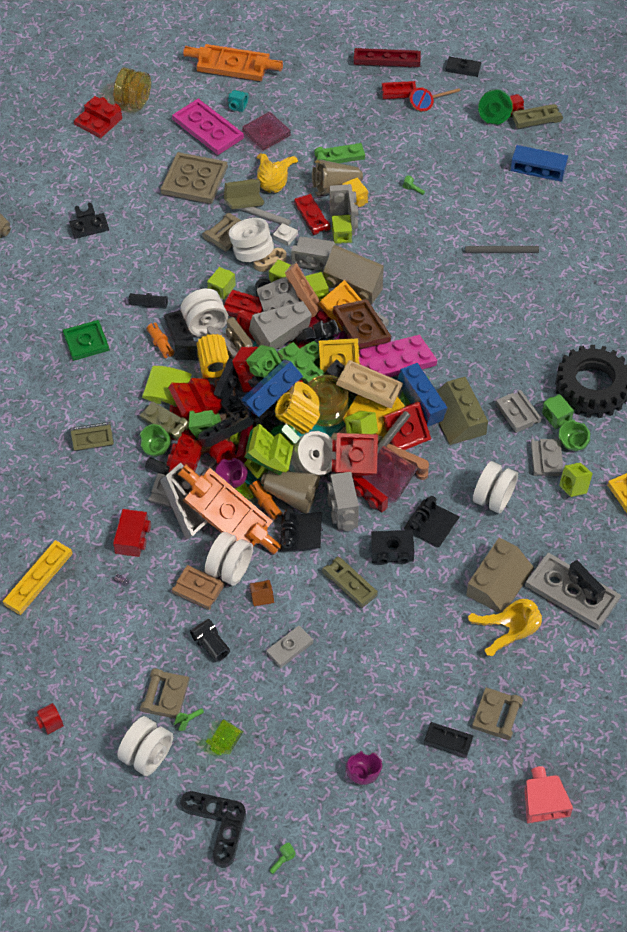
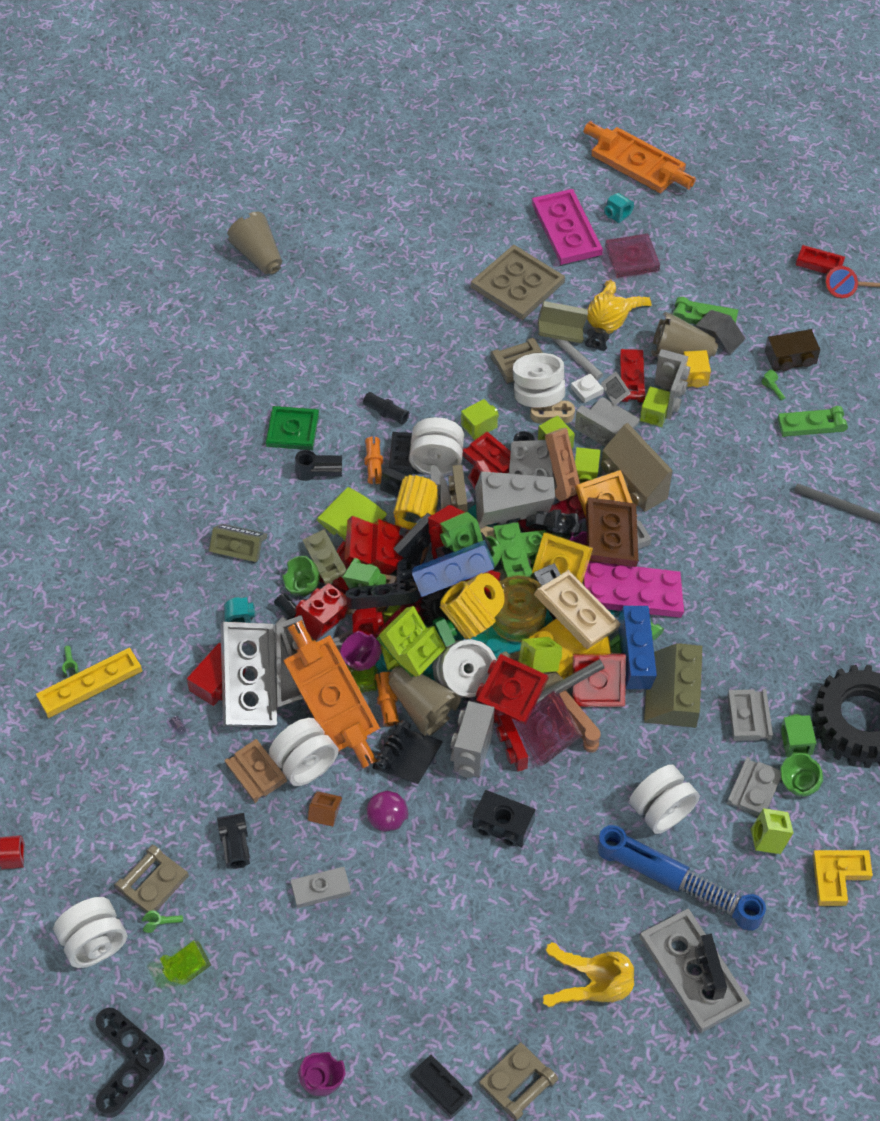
camera: 25 degrees right, 0 degrees up
(13, 569) = (69, 661): none -> bright green hand
(88, 223) = (369, 291): black plate -> none
(99, 116) = (449, 171): red plate -> none
(116, 360) = (311, 465): none -> black piece
(122, 484) = (239, 610): none -> teal plate
(132, 88) = (500, 151): clear yellow wheel -> none
(152, 533) = (235, 686): none -> plate
(274, 193) = (599, 334): none -> black plate
(306, 226) = (615, 388): none -> sticker
(307, 575) = (387, 811): none -> magenta hair
(350, 582) = (432, 841): olive plate -> none
(359, 158) = (722, 329): none -> flat silver slope
(387, 57) = (827, 216): dark red plate -> none
(414, 157) = (792, 350): none -> dark brown brick
(431, 521) = (569, 809): black hinge -> none
(452, 201) = (812, 422): none -> bright green plate
(499, 576) = (613, 912): dark tan slope -> none
(529, 535) = (678, 876): none -> blue piece

